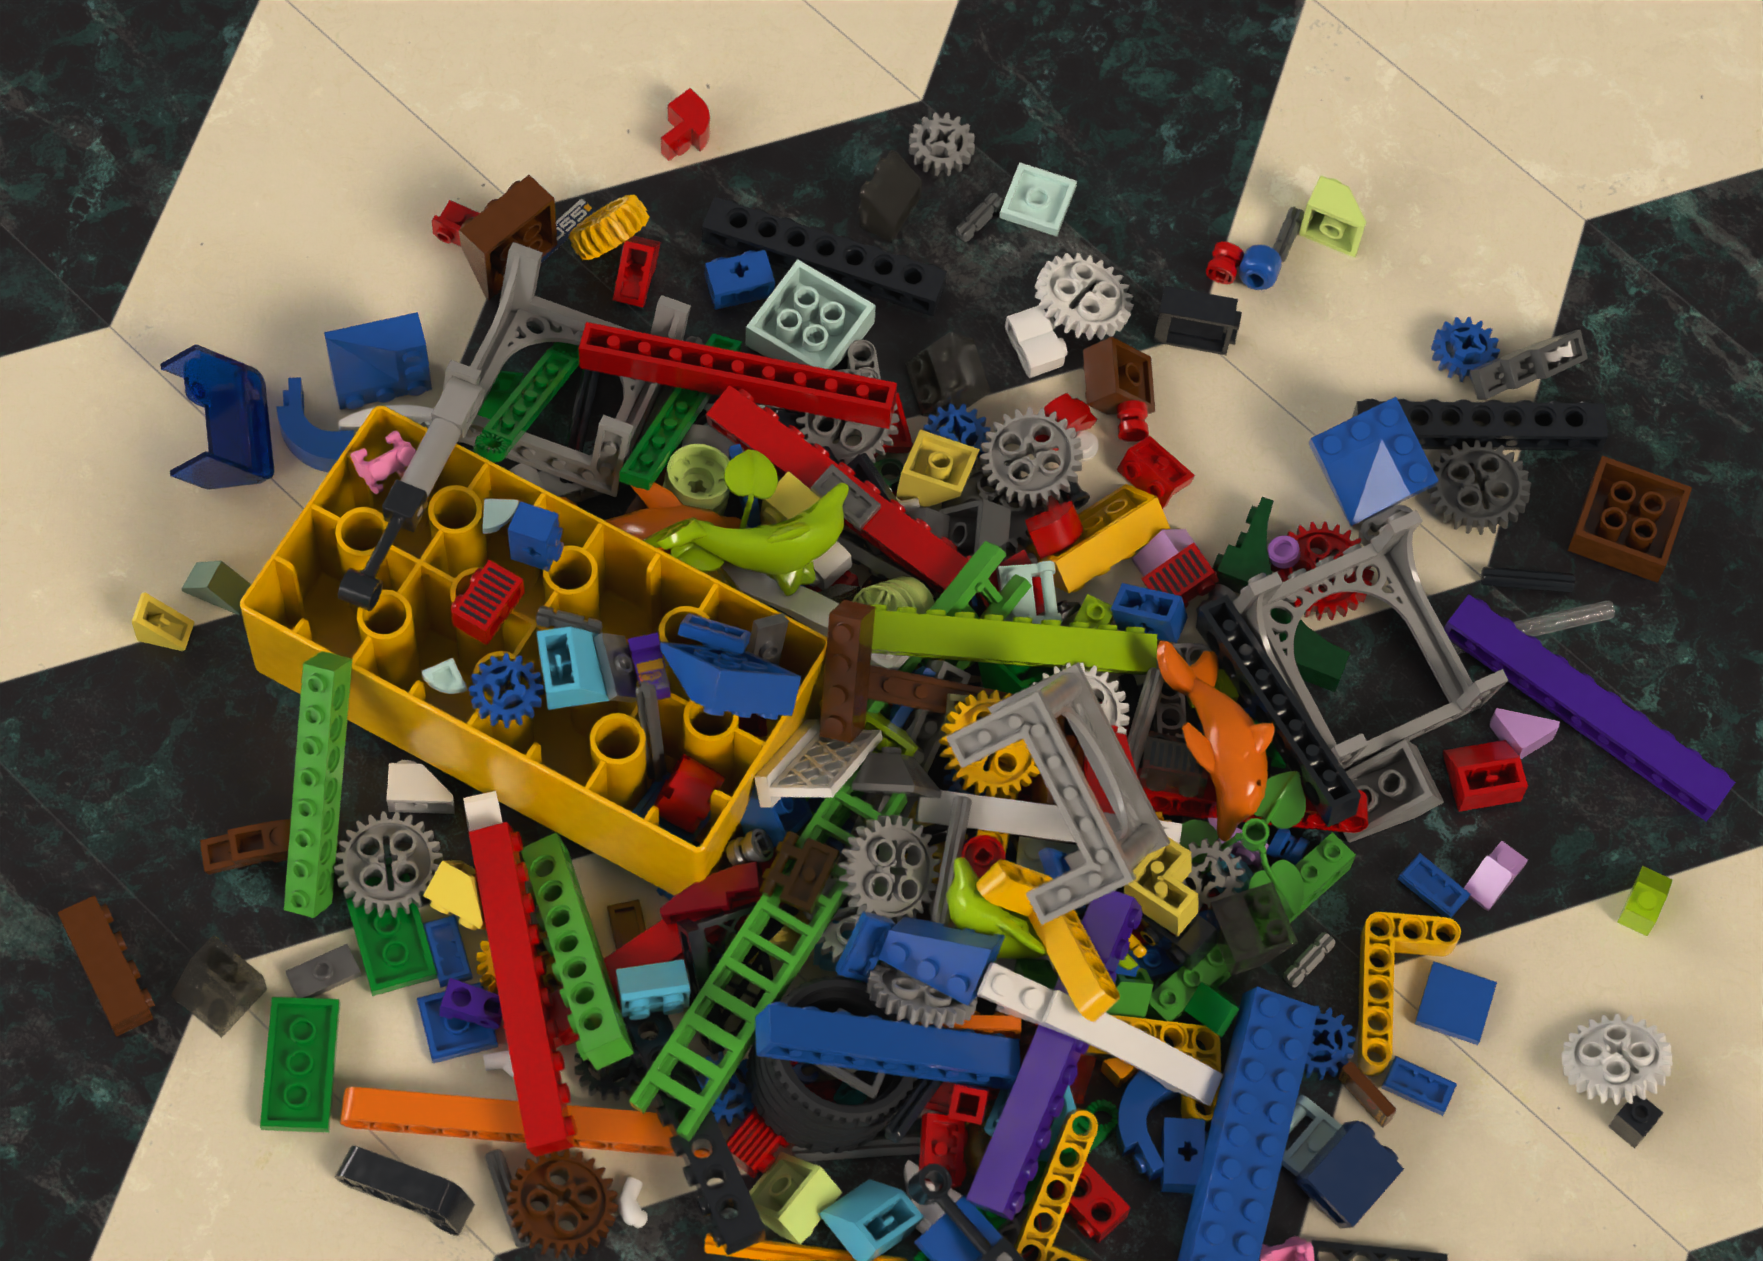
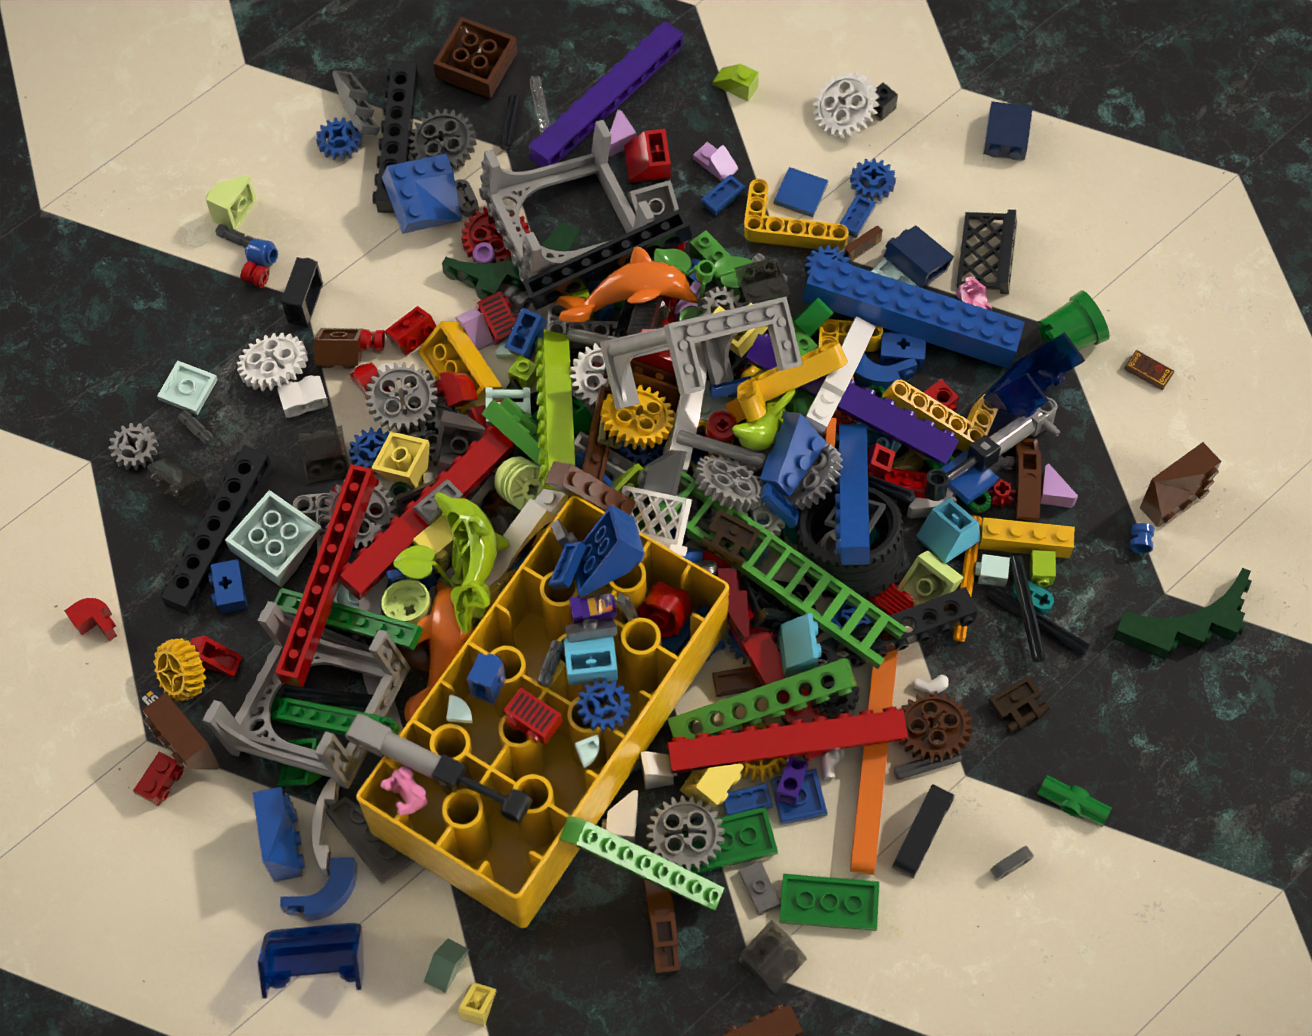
camera: 80 degrees left, 0 degrees up
(1498, 1099) = (873, 179): none -> blue gear

